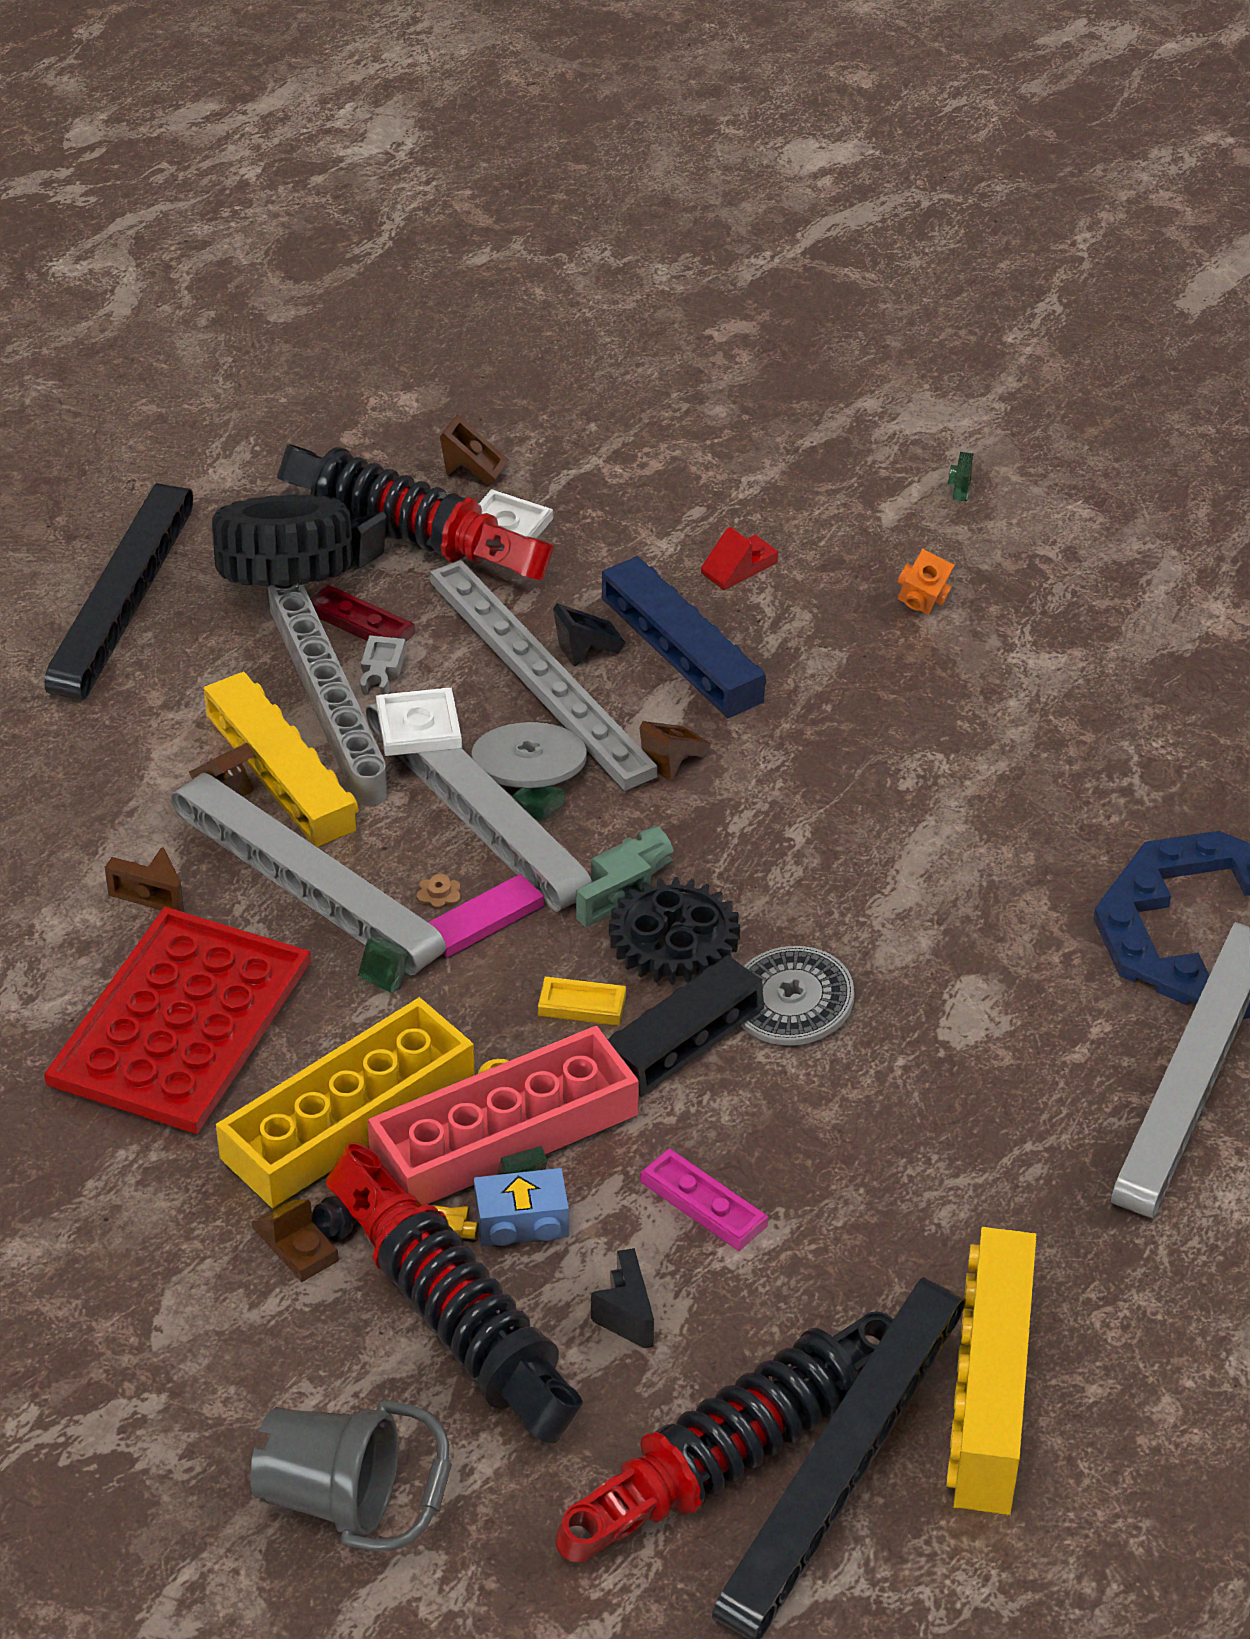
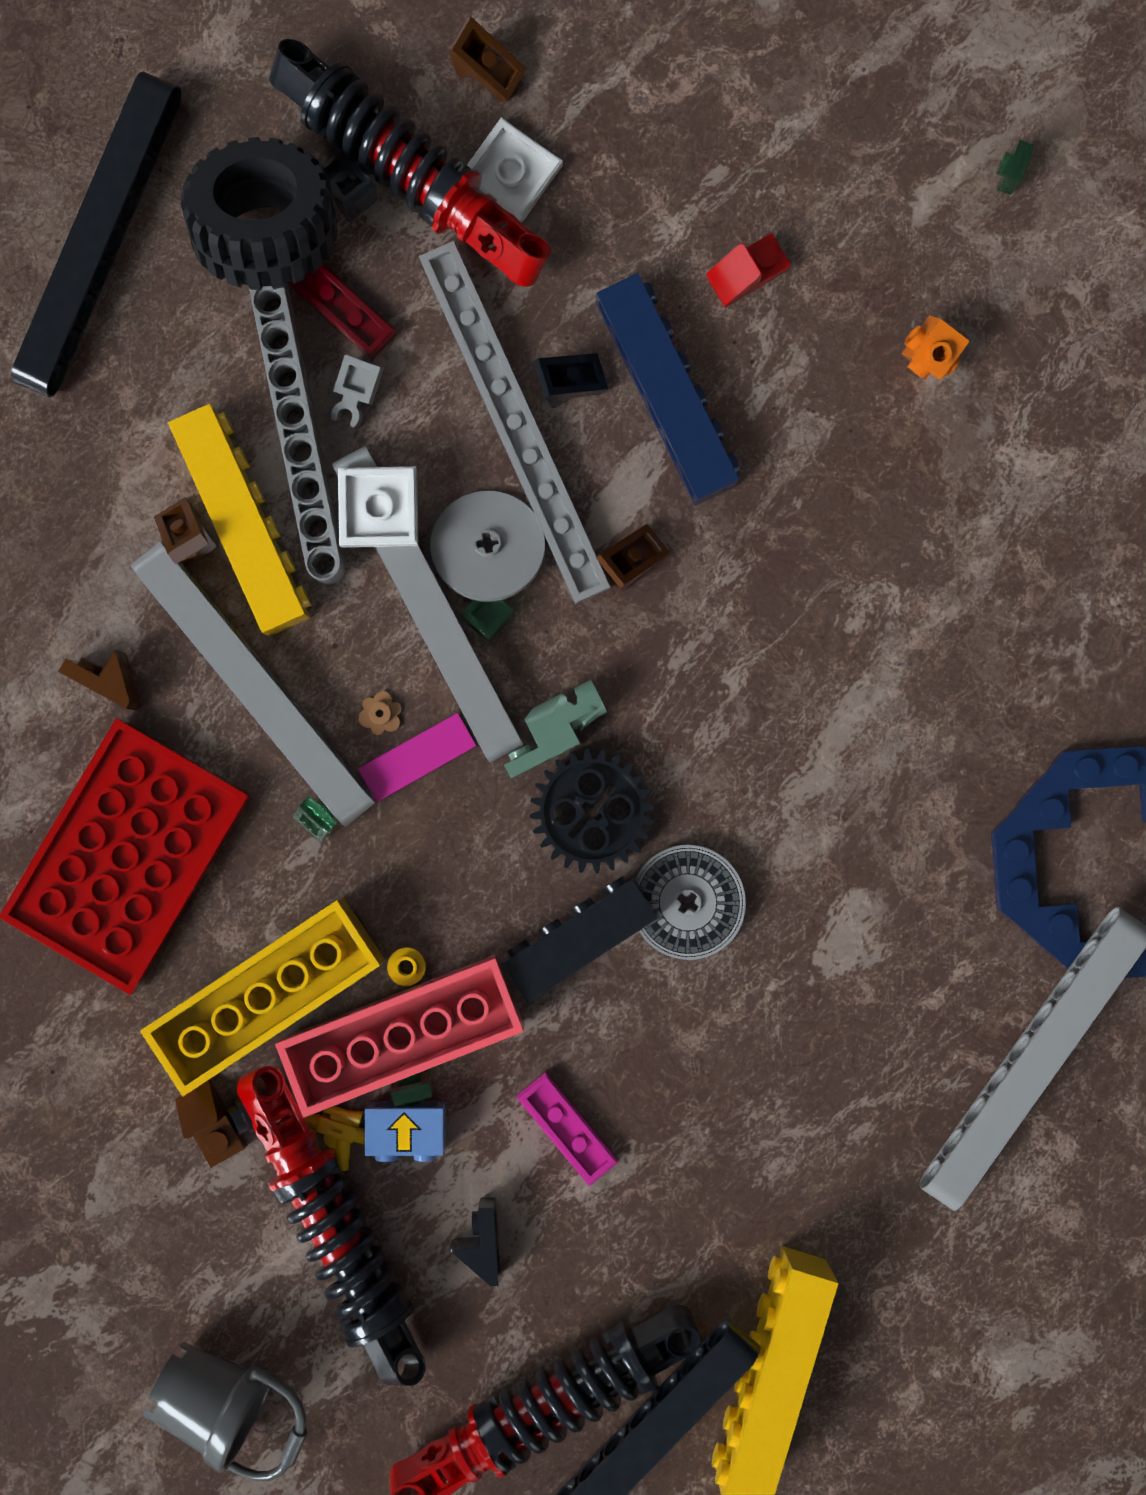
camera: 10 degrees right, 45 degrees up
(582, 1001) = (494, 878): yellow tile -> none

